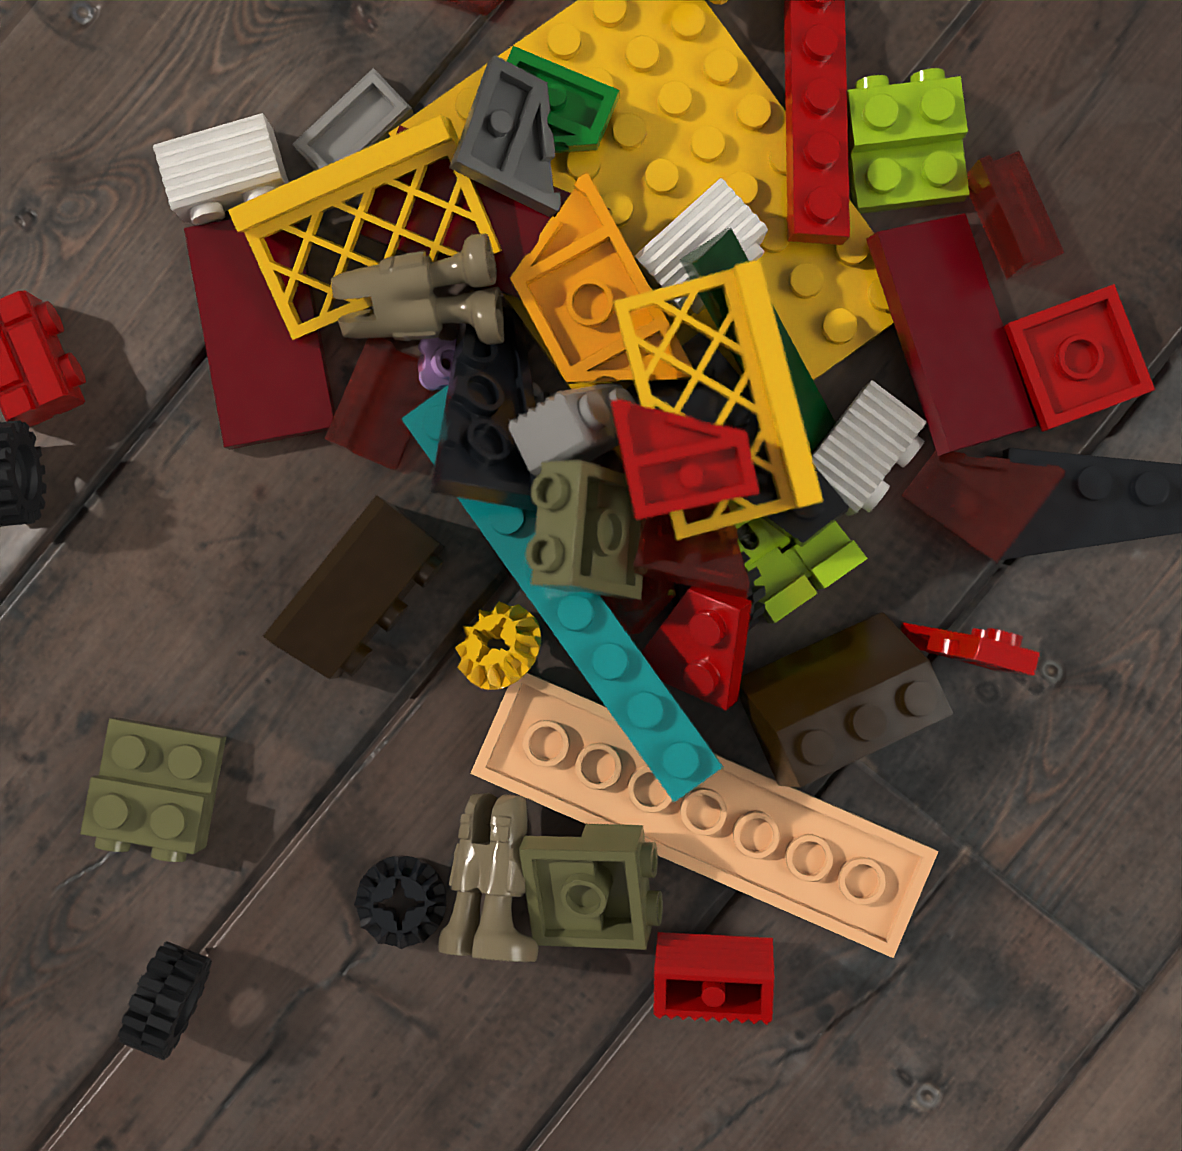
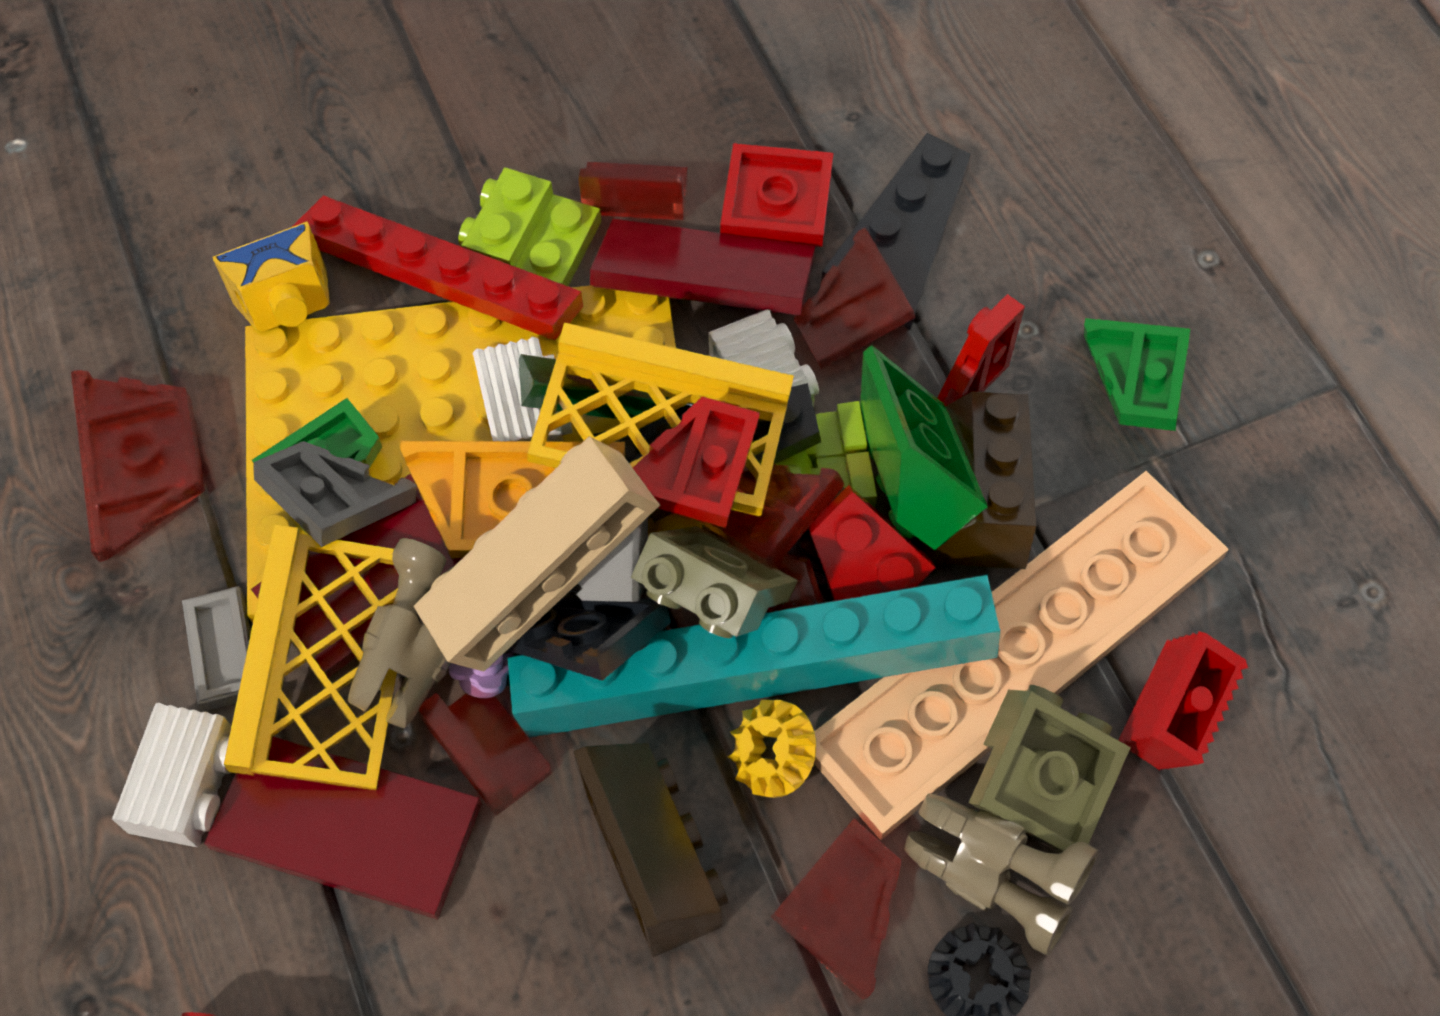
camera: 70 degrees left, 25 degrees down
(399, 768) = (844, 906): none -> clear red wing
(515, 370) = (535, 555): none -> tan brick
(829, 643) = (916, 454): none -> green slope
(1054, 800) = (1140, 369): none -> green wing

